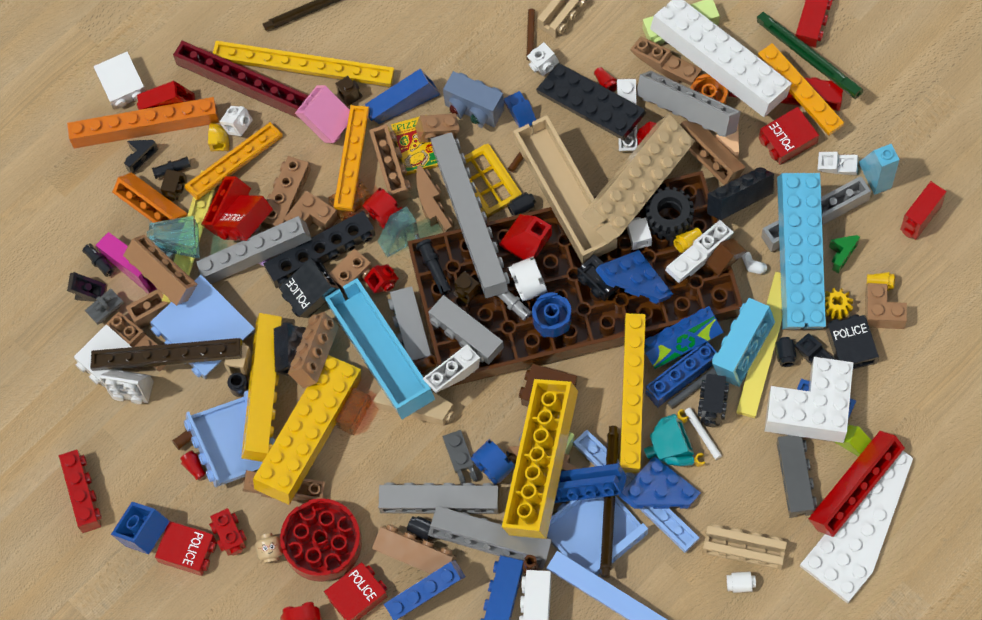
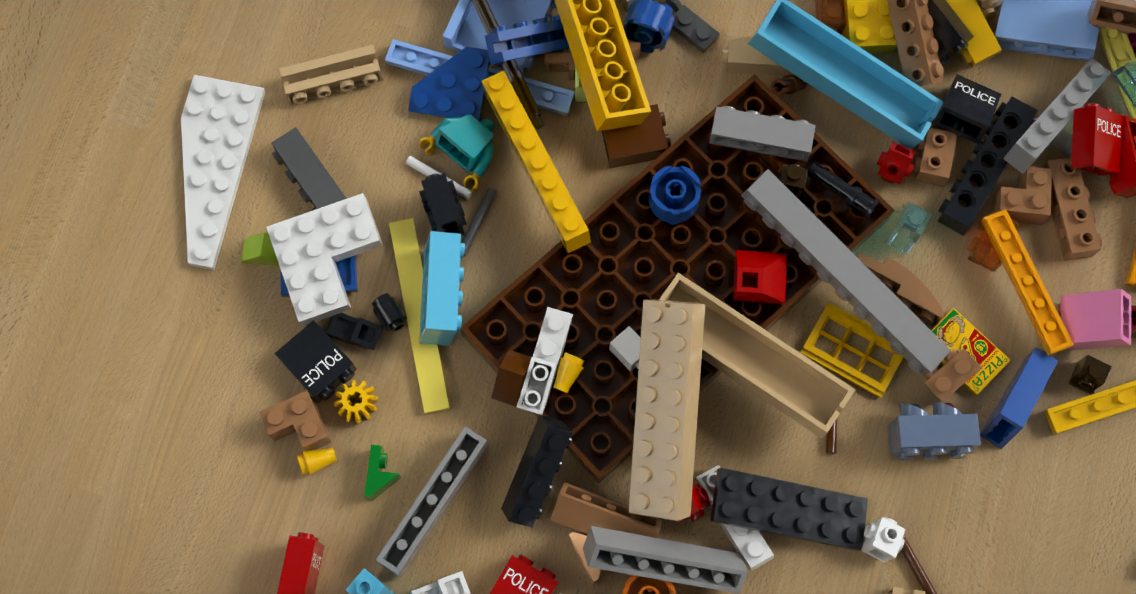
camera: 145 degrees right, 5 degrees up
(381, 206) = (947, 242): red brick -> none
(390, 164) = (978, 303): medium nougat brick -> none
(409, 323) = (831, 127): light grey brick -> none
(453, 369) = (747, 71): white slope -> none
(515, 305) = (723, 192): light grey pin -> none
(520, 109) = (869, 461): blue slope -> none
(521, 204) = (795, 333): black brick -> none
(528, 279) = (726, 221): white brick -> none
(589, 277) = (646, 269): black hinge -> none
(605, 79) = (789, 556): red cone -> none
(635, 276) = (604, 287): blue plate -> none
(669, 199) = (600, 369): black tyre -> none
(680, 374) = (495, 226): blue brick -> none
(682, 337) = (513, 258): blue brick -> none
(740, 582) = (318, 38): white brick -> none
(753, 266) = (480, 401): white arm -> none
(801, 251) = (425, 432): medium azure piece -> none
(856, 483) = (237, 198): red brick -> none

